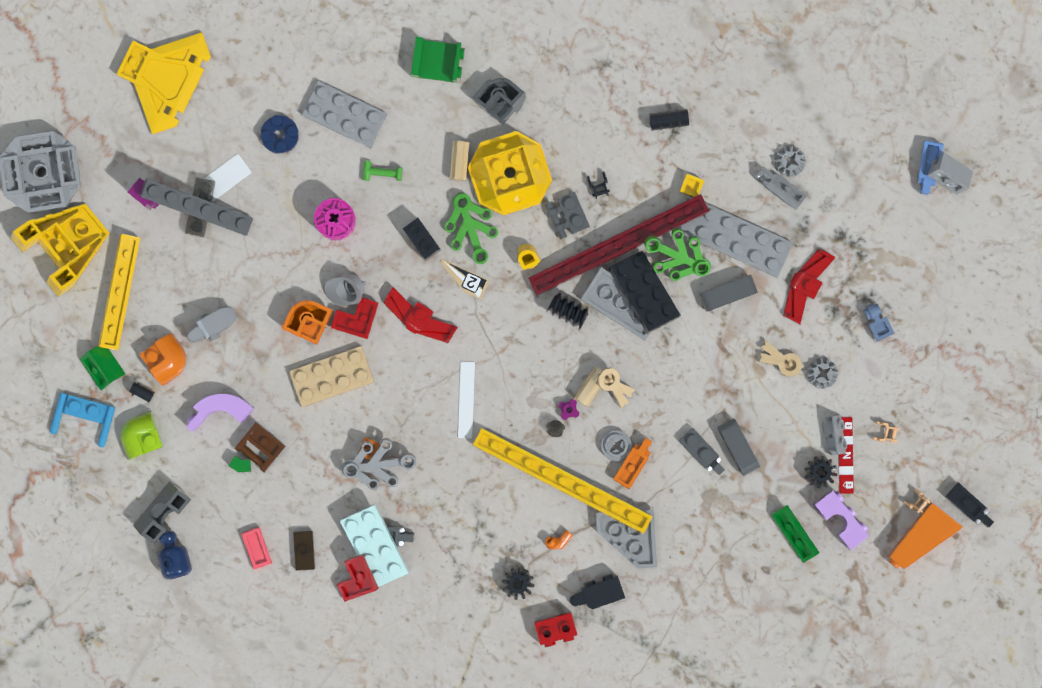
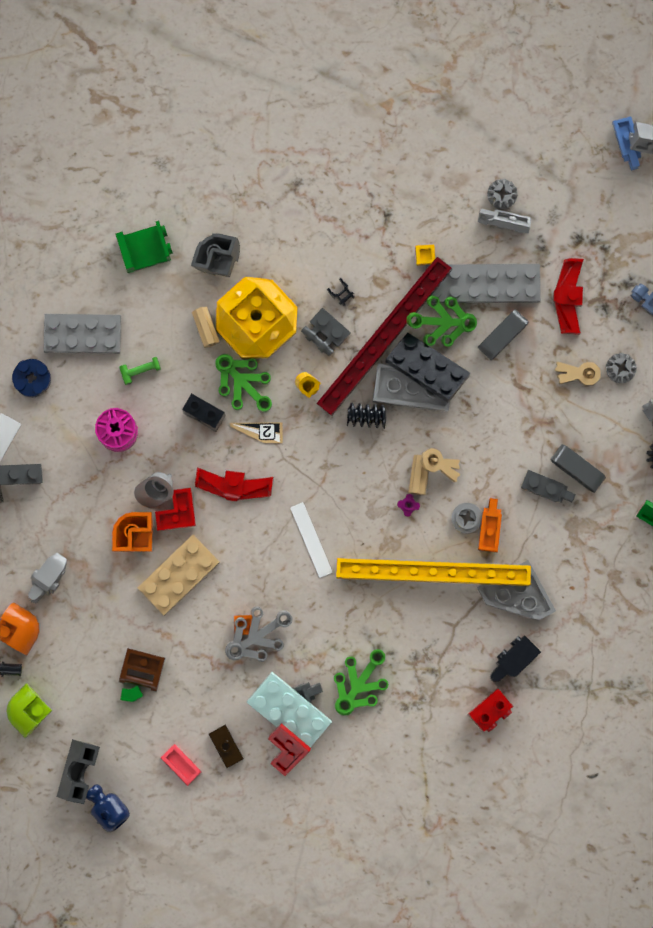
camera: 25 degrees left, 5 degrees down
(229, 403) = (86, 645): lavender arch -> none
(448, 551) = (358, 685): none -> bright green plant
(511, 581) = (443, 684): black gear -> none
(555, 428) = (404, 527): clear smoke plate -> none
(558, 542) = (456, 630): orange arm -> none
(669, 119) = (377, 205): black axle -> none

